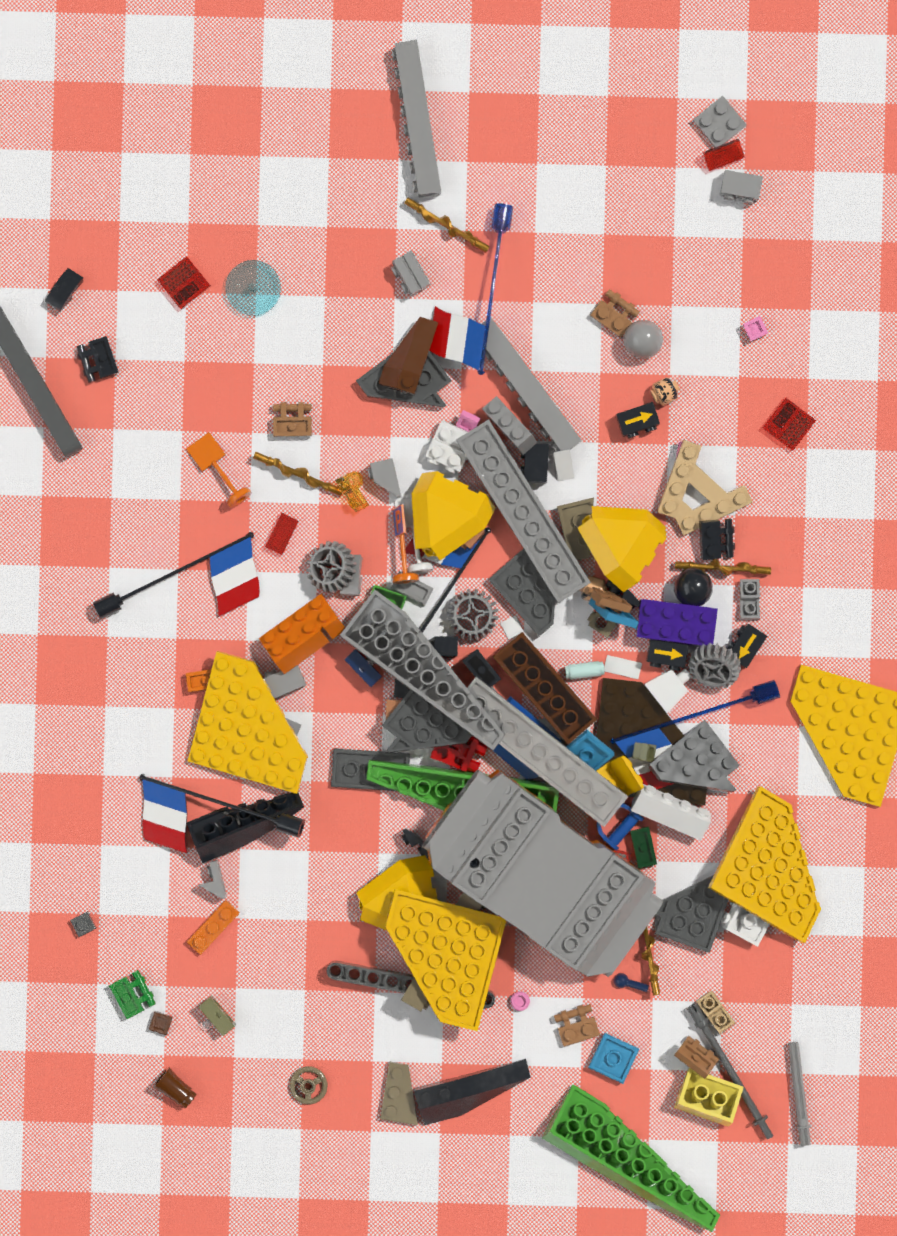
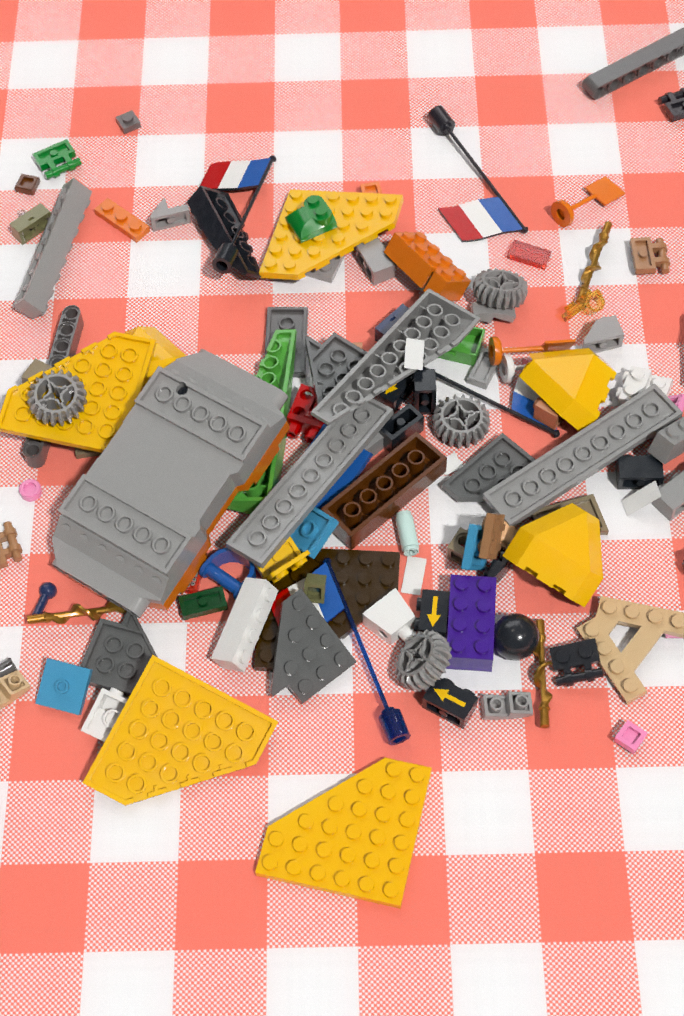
camera: 85 degrees right, 30 degrees down
(242, 742) = (311, 219): none -> green slope
(252, 992) = (53, 249): none -> light grey brick
(422, 654) = (414, 354): none -> white sticker
(449, 980) = (69, 387): none -> light grey gear
(716, 961) = (64, 686): none -> dark azure plate
(783, 503) = (630, 737): none -> bright pink plate

